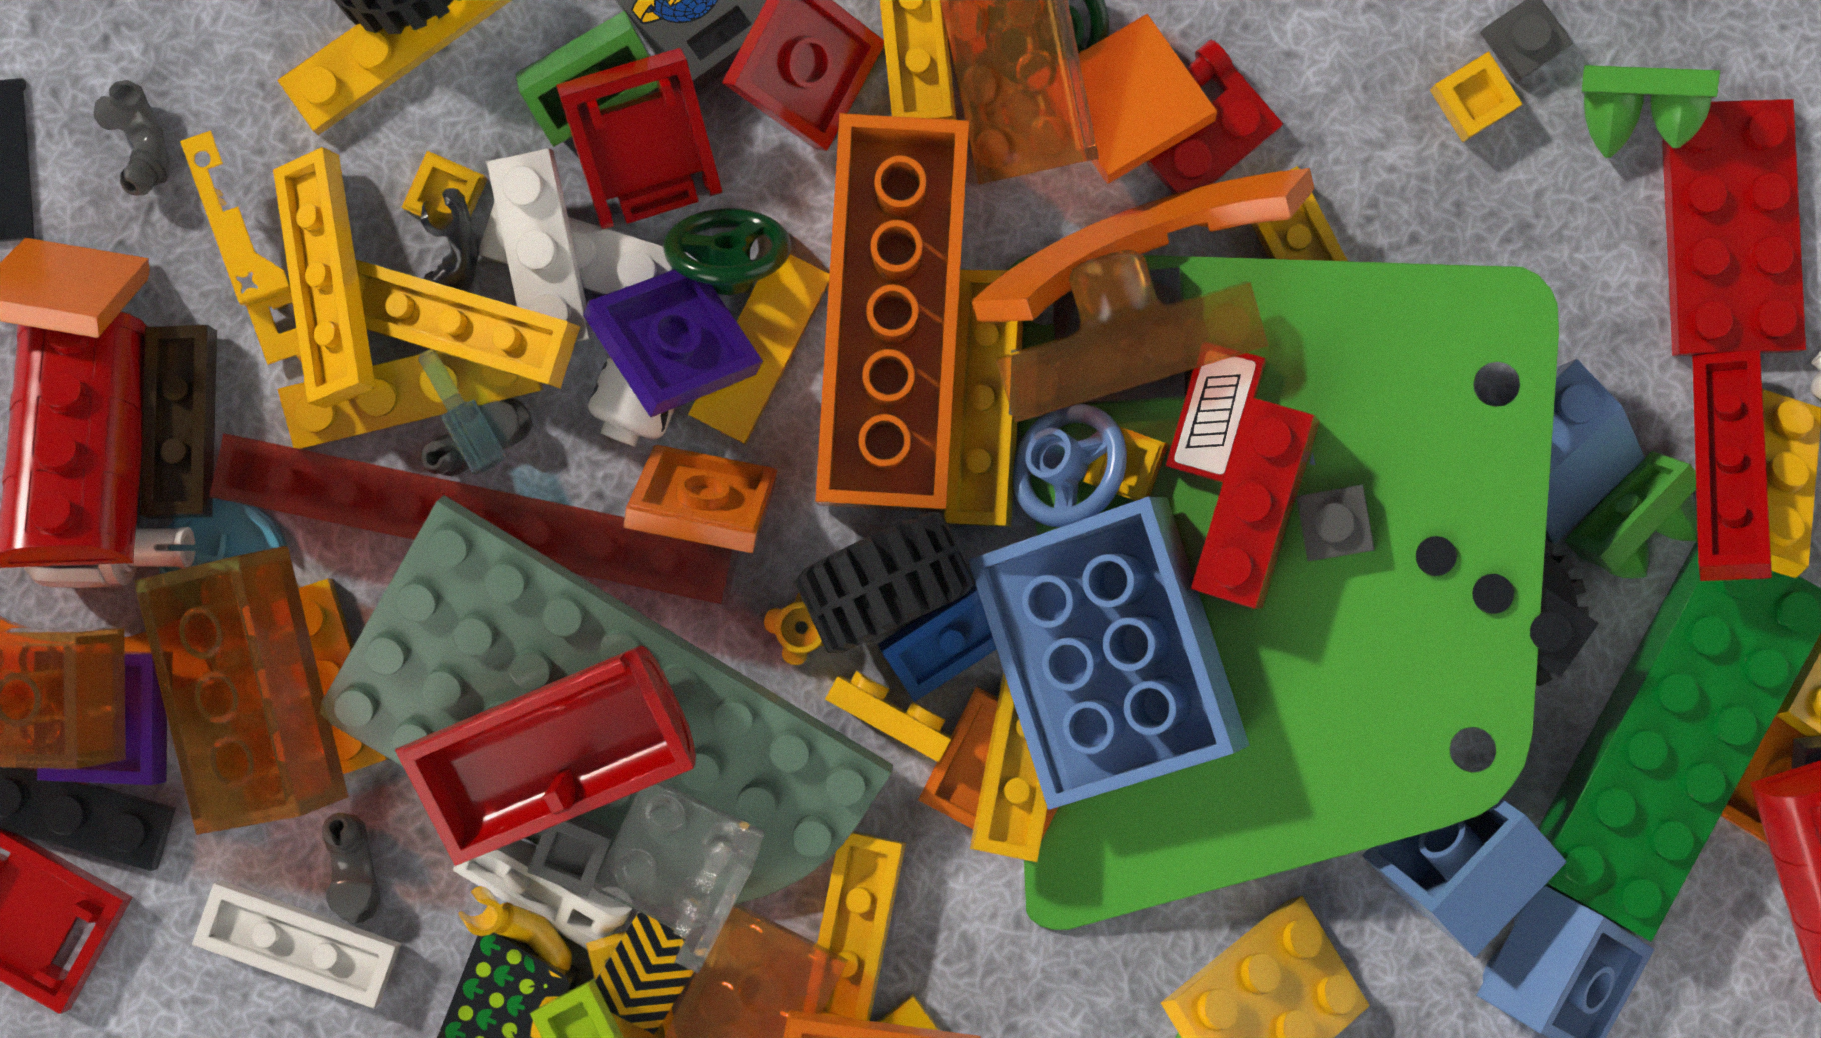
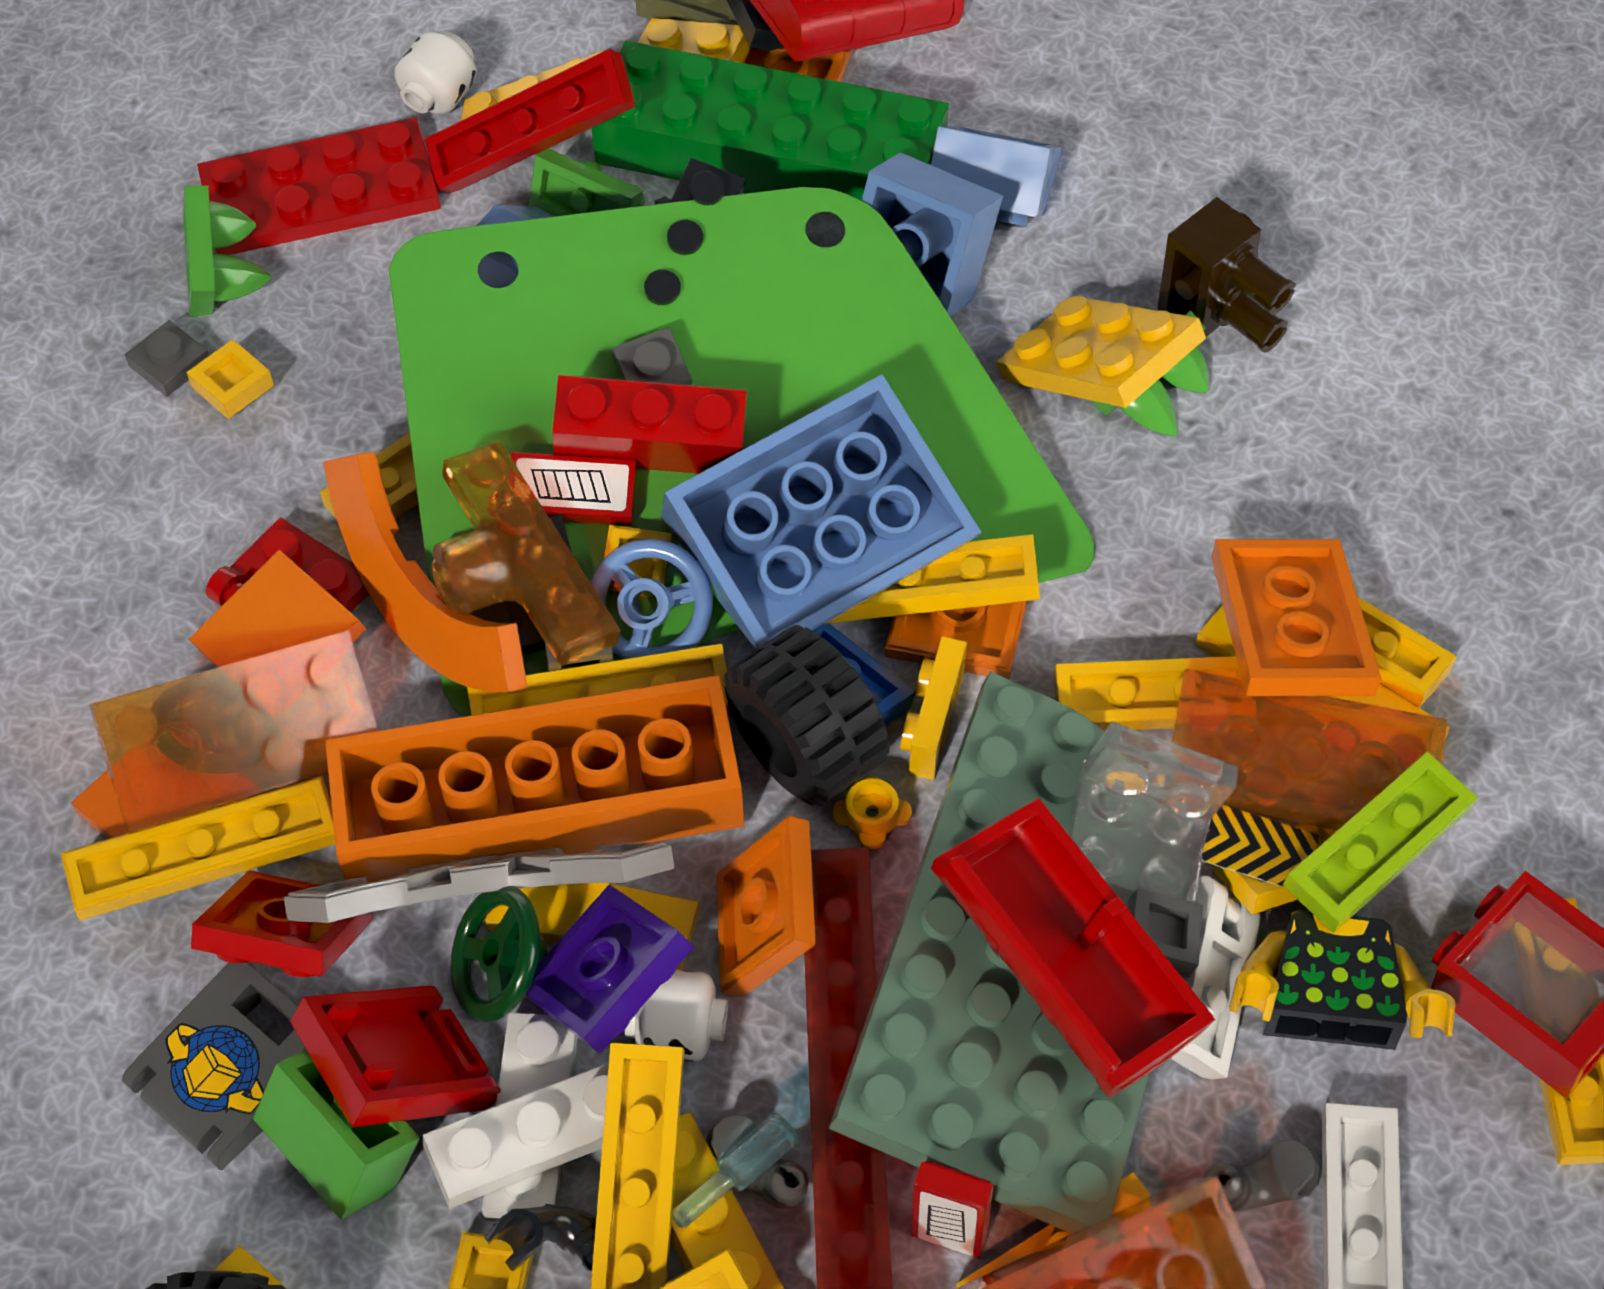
camera: 105 degrees left, 30 degrees down
(362, 586) = (951, 1208): none -> tile
(799, 280) = (479, 875): none -> light grey tile

